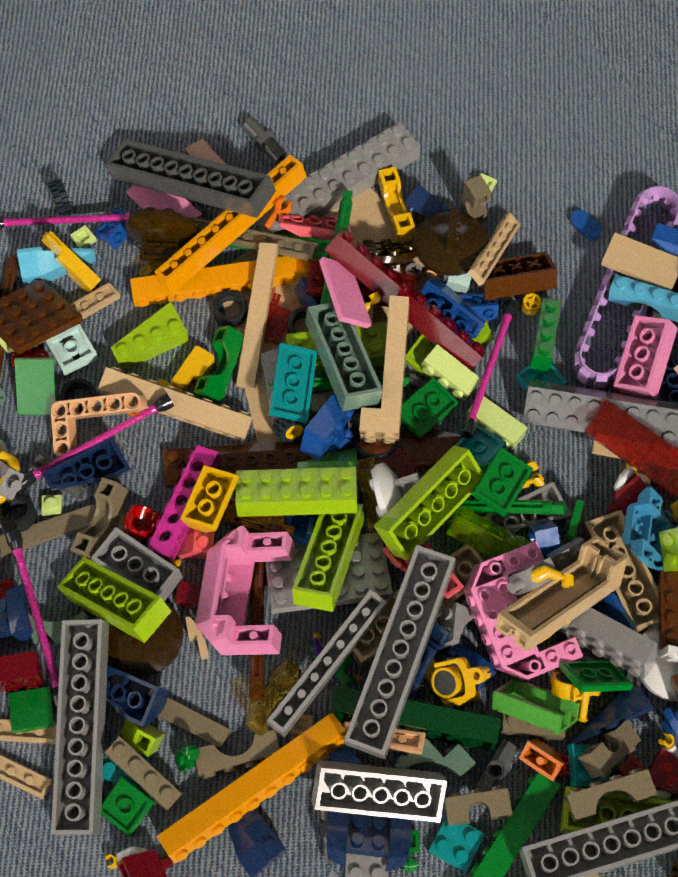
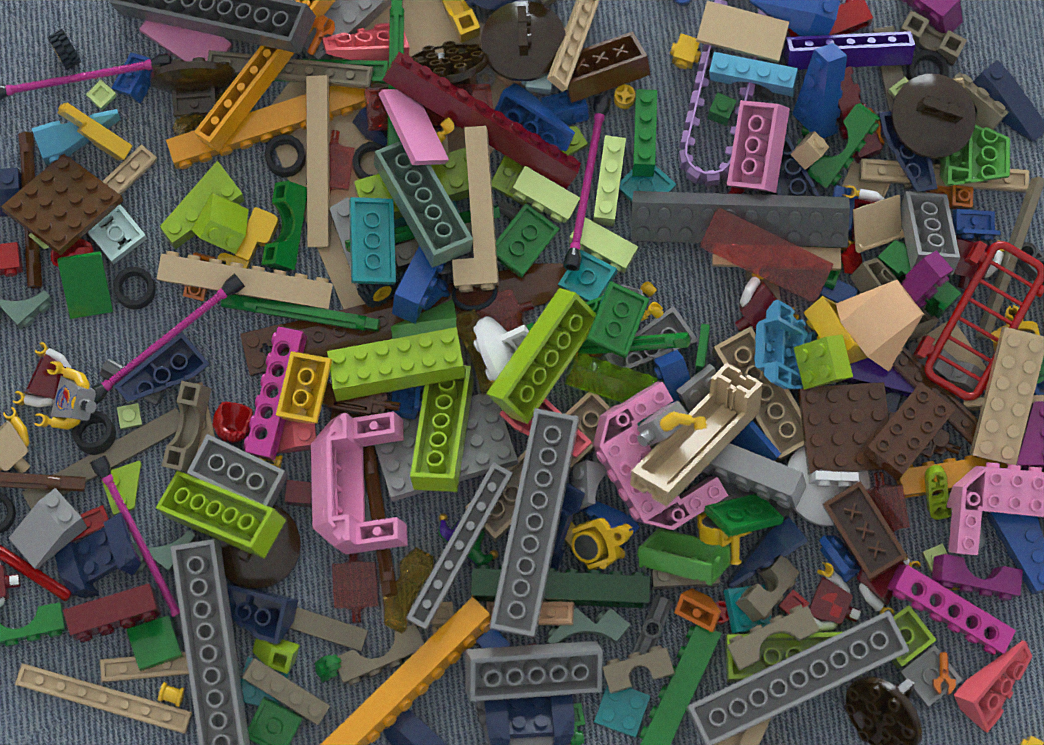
camera: 10 degrees left, 10 degrees up
(37, 563) = (127, 482): none -> lime wing
(37, 760) = (171, 694): none -> yellow bush
(89, 410) = (152, 304): light nougat beam -> none
(165, 352) = (222, 223): none -> lime slope
(194, 635) = (312, 535): tan slope -> none
(219, 438) = (301, 312): none -> green piece
(225, 687) = (354, 586): none -> clear red plate
(509, 369) = (609, 180): none -> yellowish green arch
(589, 275) = (685, 52): none -> yellow brick
(615, 326) = (721, 109): none -> green brick

